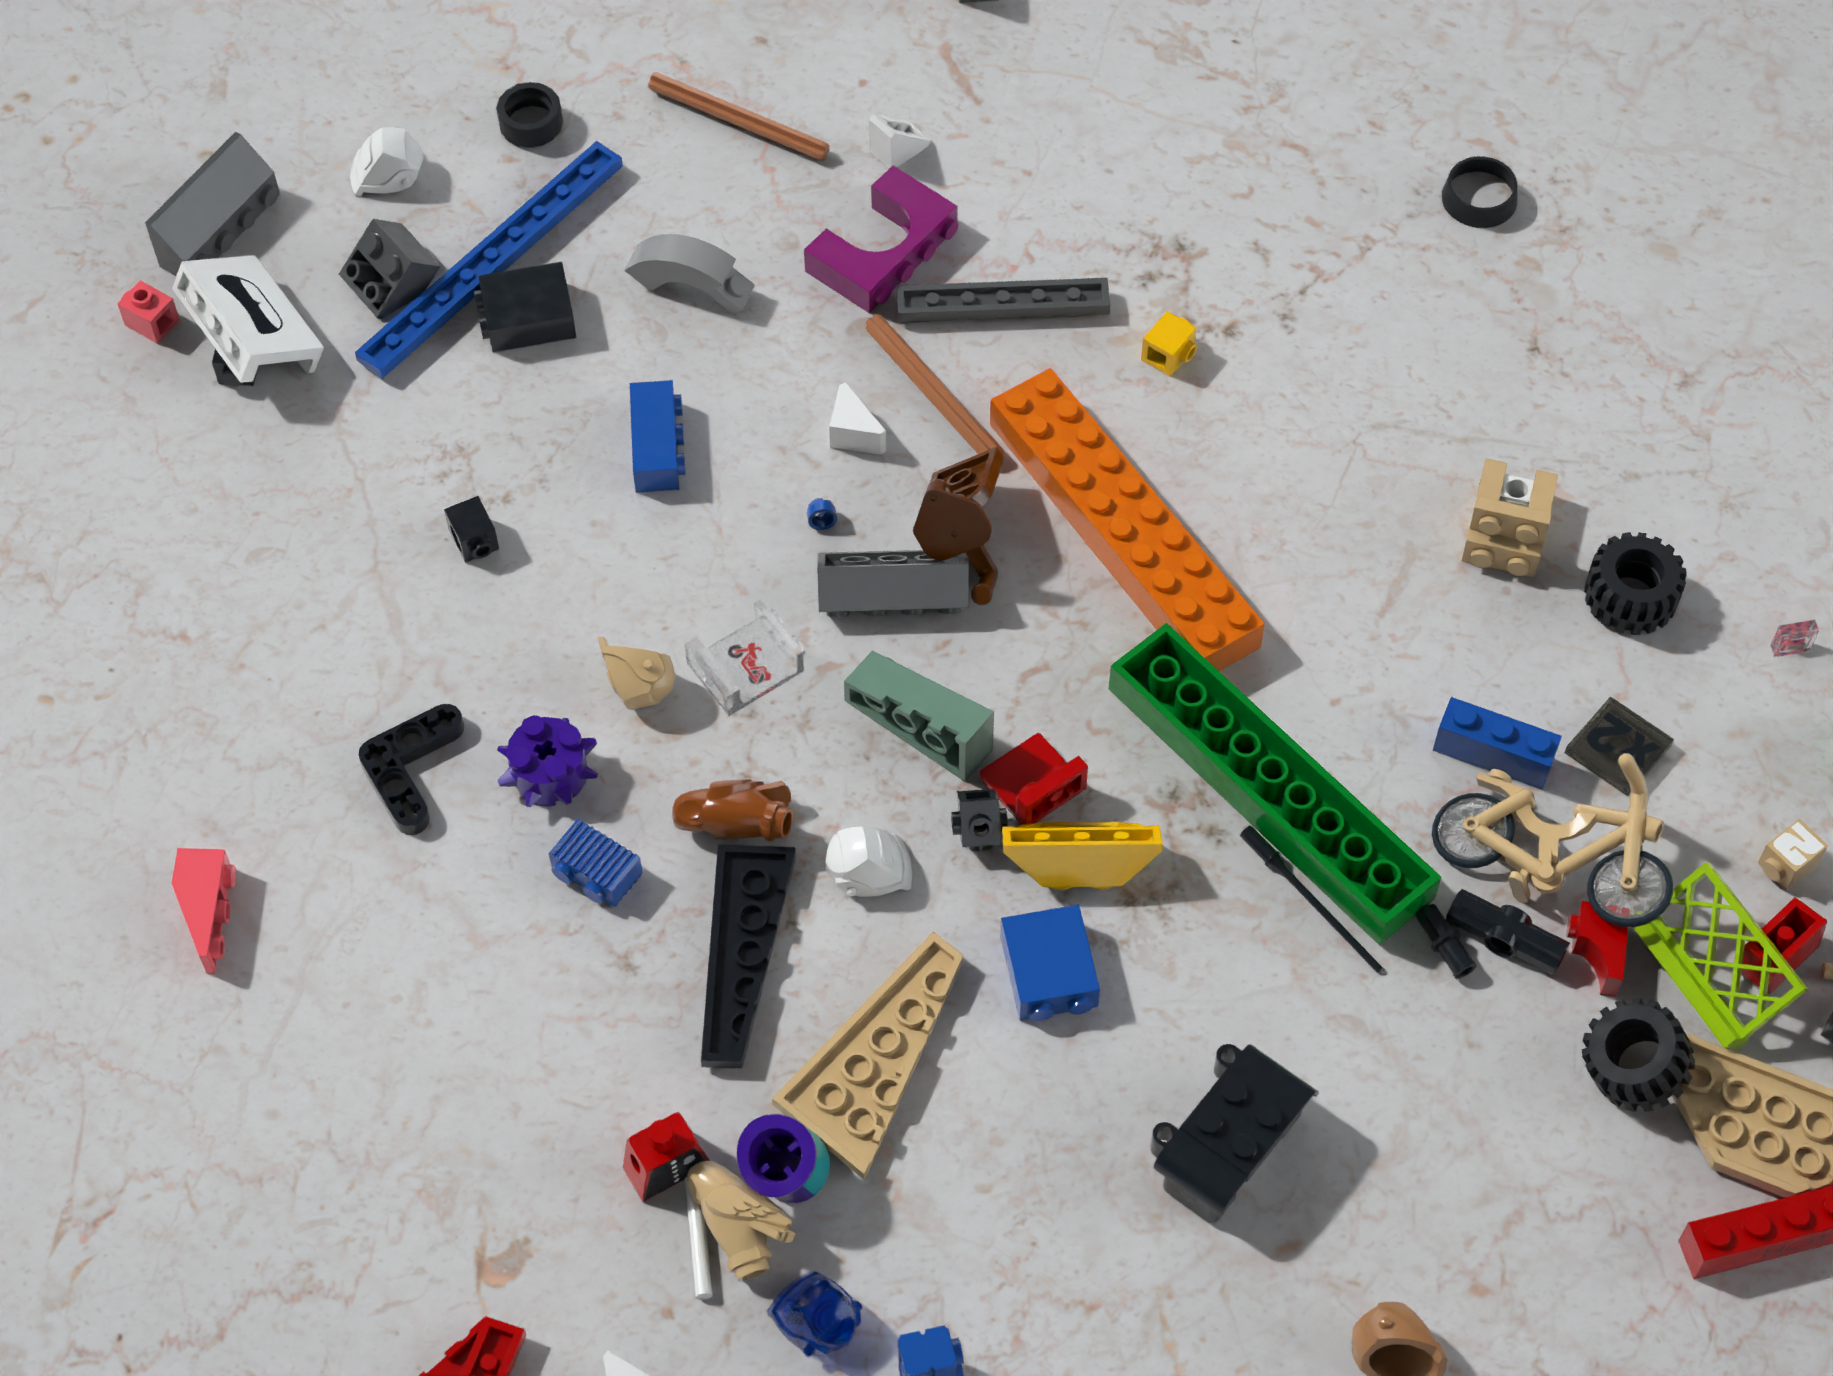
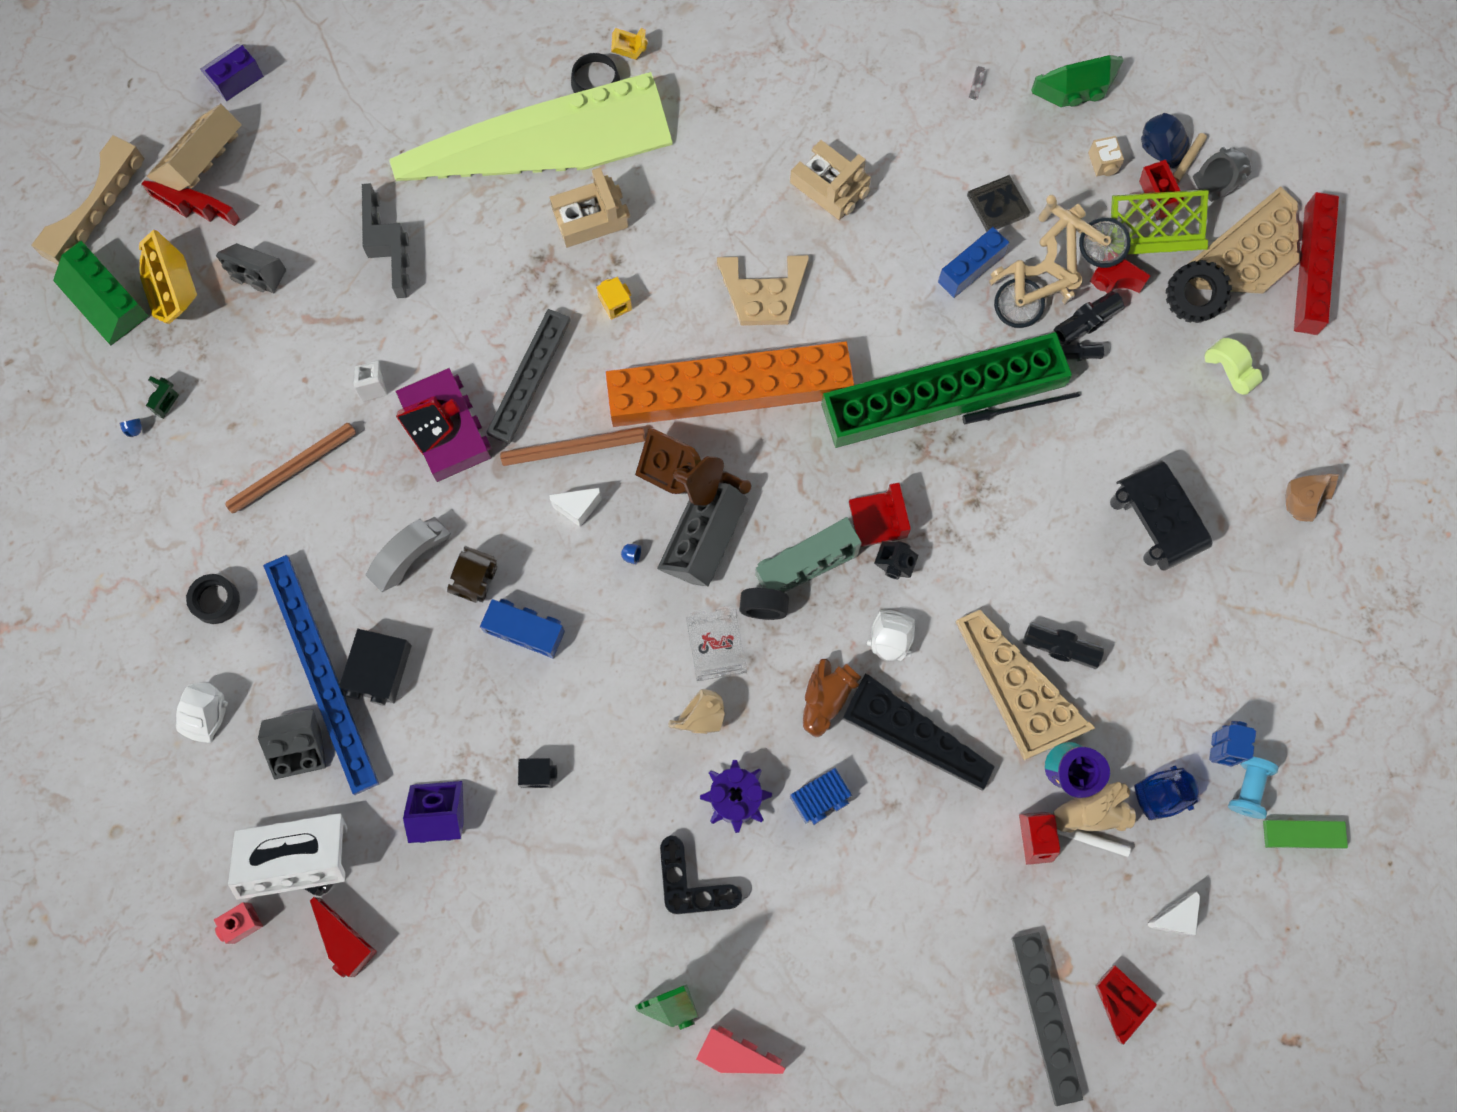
camera: 65 degrees left, 15 degrees up
(171, 419) = (342, 943): none -> red slope
(213, 206) = (179, 845): dark grey slope -> none
(236, 787) = (671, 1008): none -> green wedge
(371, 444) = (434, 812): none -> dark purple slope
(412, 1274) = (1047, 1019): none -> dark grey plate
(694, 347) = (471, 574): none -> dark brown brick
(827, 682) = (764, 603): none -> black tyre
(869, 214) = (428, 421): none -> torso
(969, 1088) = (1063, 645): none -> black piece
(1049, 963) = (1005, 565): blue brick -> none
(1082, 852) = (942, 510): yellow wedge -> none
(1094, 72) = (385, 240): none -> dark grey bracket
(1279, 265) = (585, 204): none -> tan brick
(1281, 520) = (763, 299): none -> tan wing
(1365, 184) = (555, 134): none -> yellowish green wedge
(1552, 1161) = (1236, 363): none -> yellowish green animal
(1556, 203) = (628, 44): none -> yellow bracket
(1638, 559) = (909, 124): black tyre -> none

